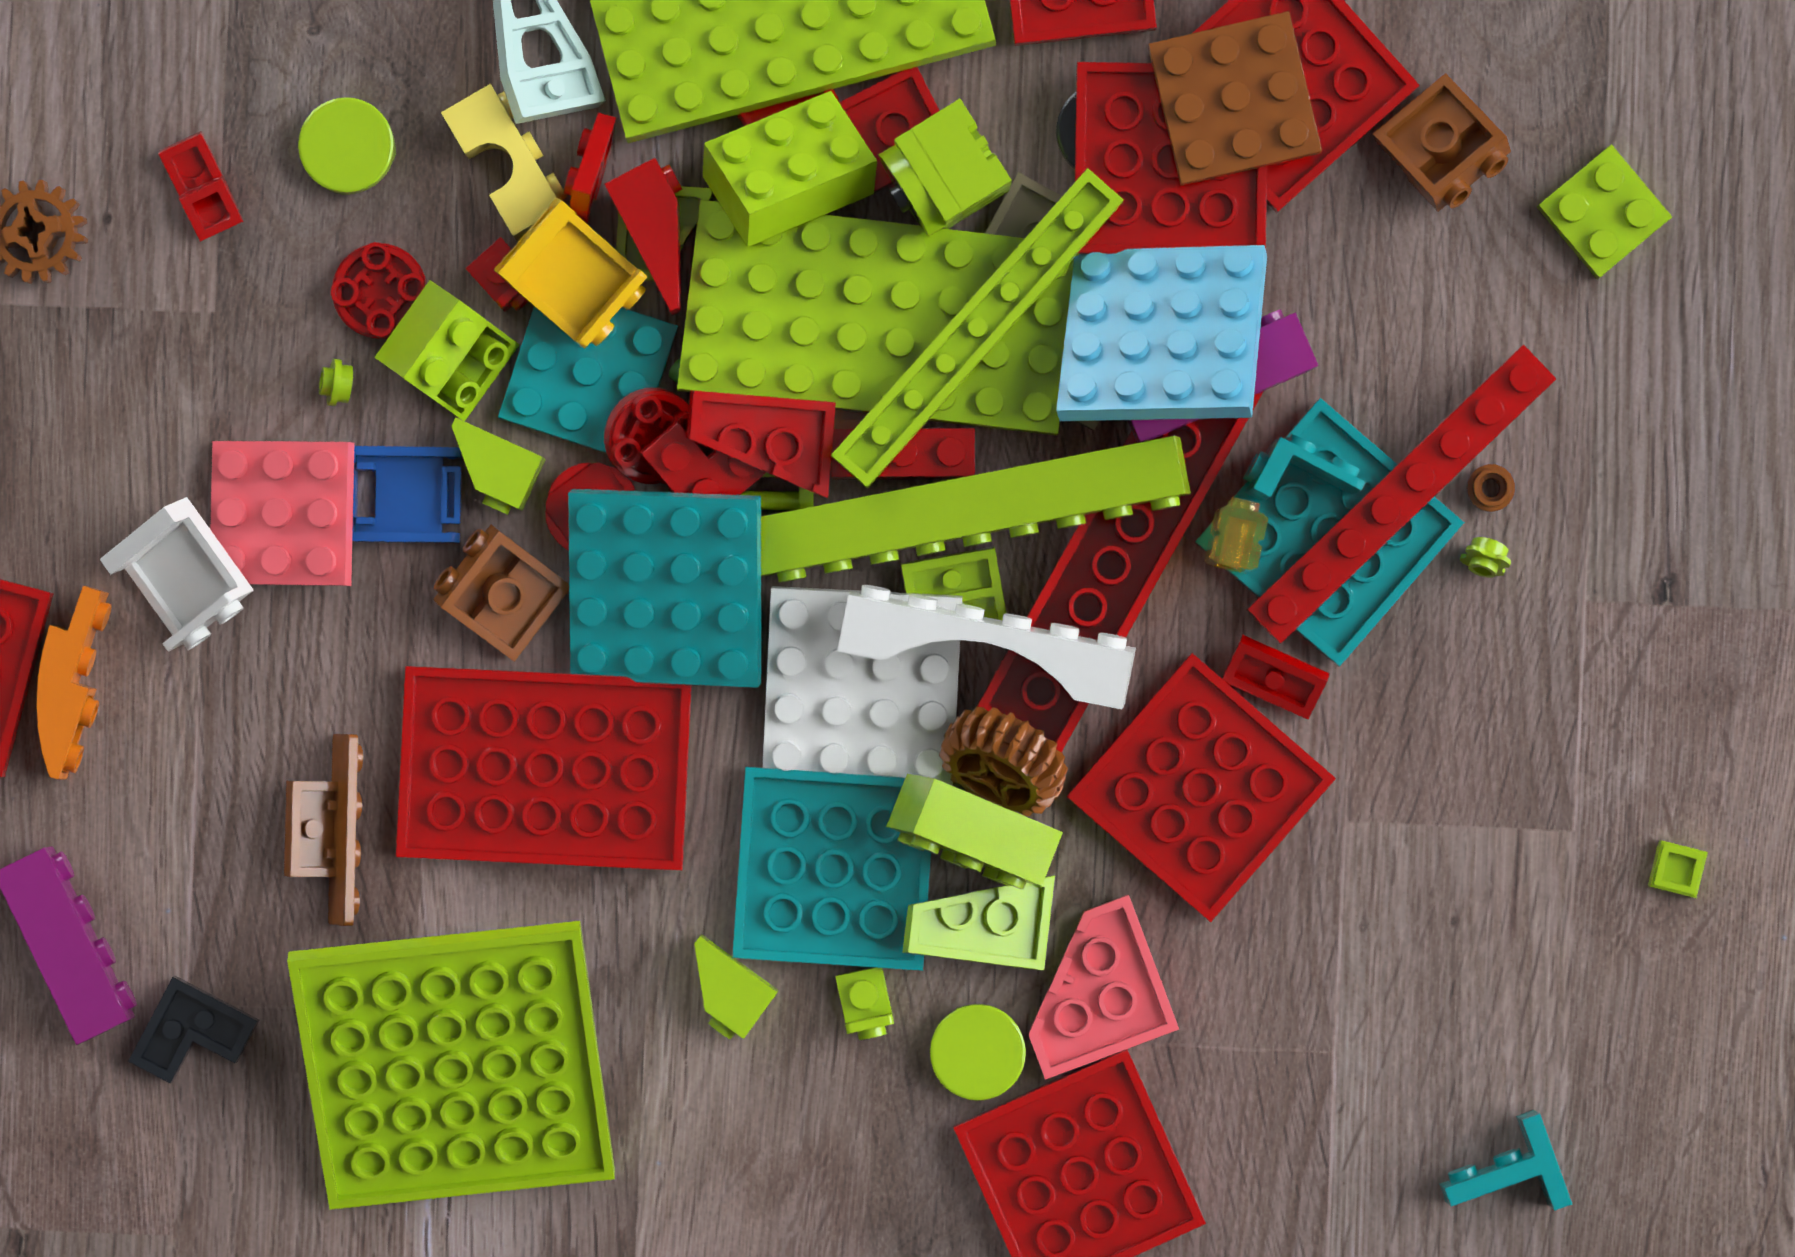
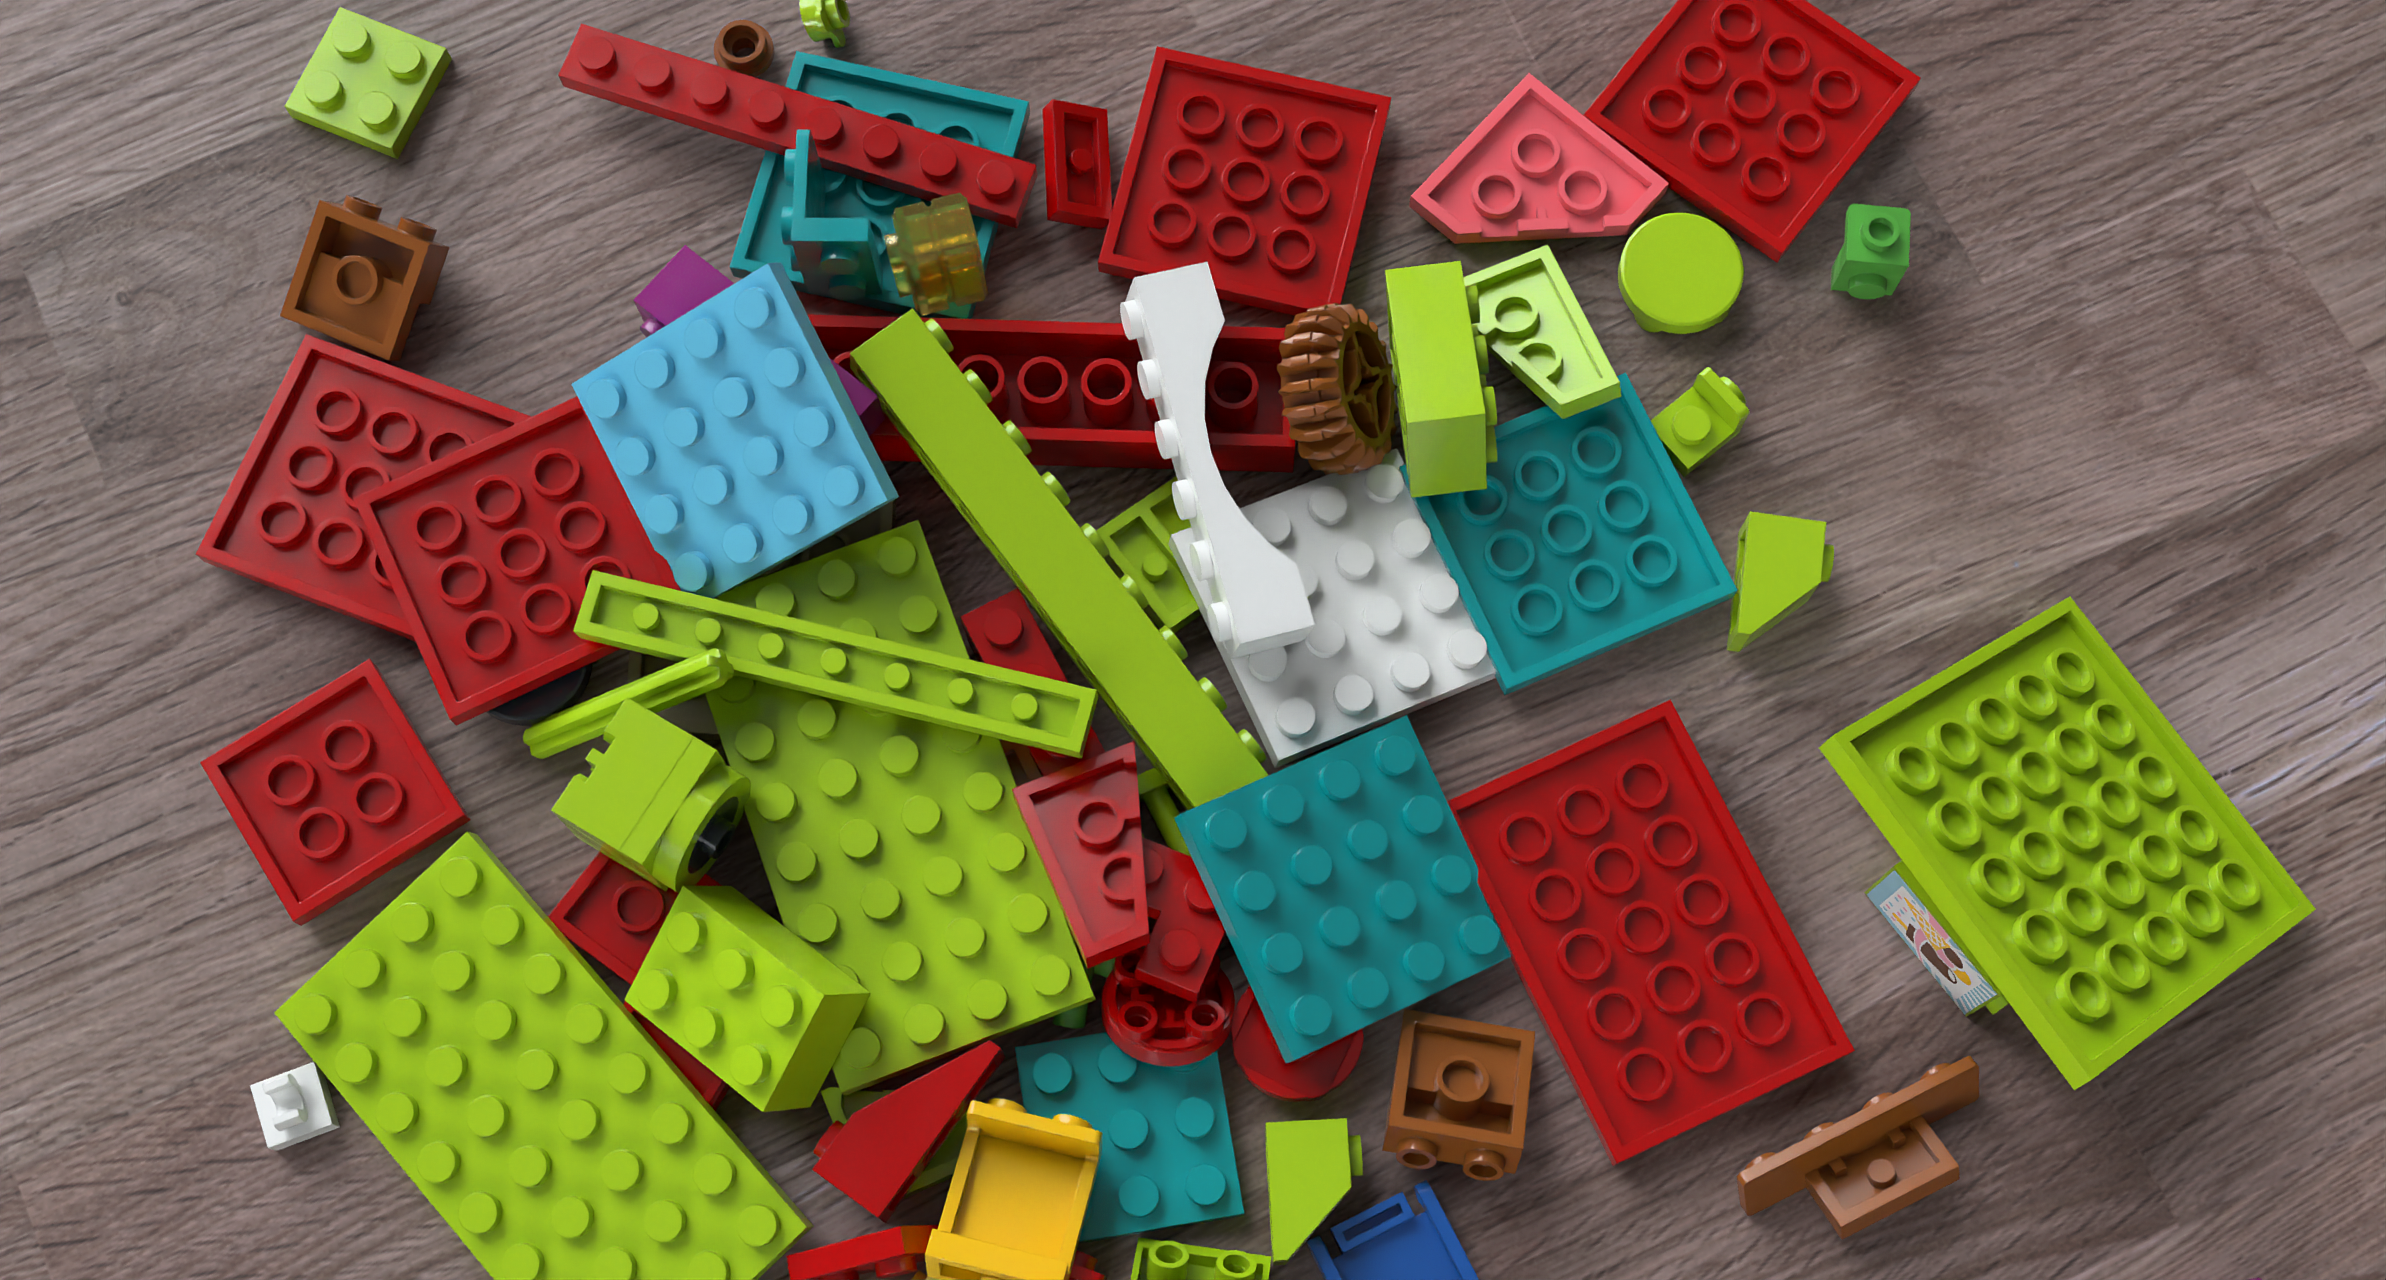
camera: 115 degrees left, 15 degrees down
(187, 1017) = (2197, 1208): black plate -> none
(920, 1189) = (1873, 251): none -> bright green bracket
(1026, 182) = (654, 692): none -> lime axle
(1234, 98) = (410, 513): dark orange plate -> none

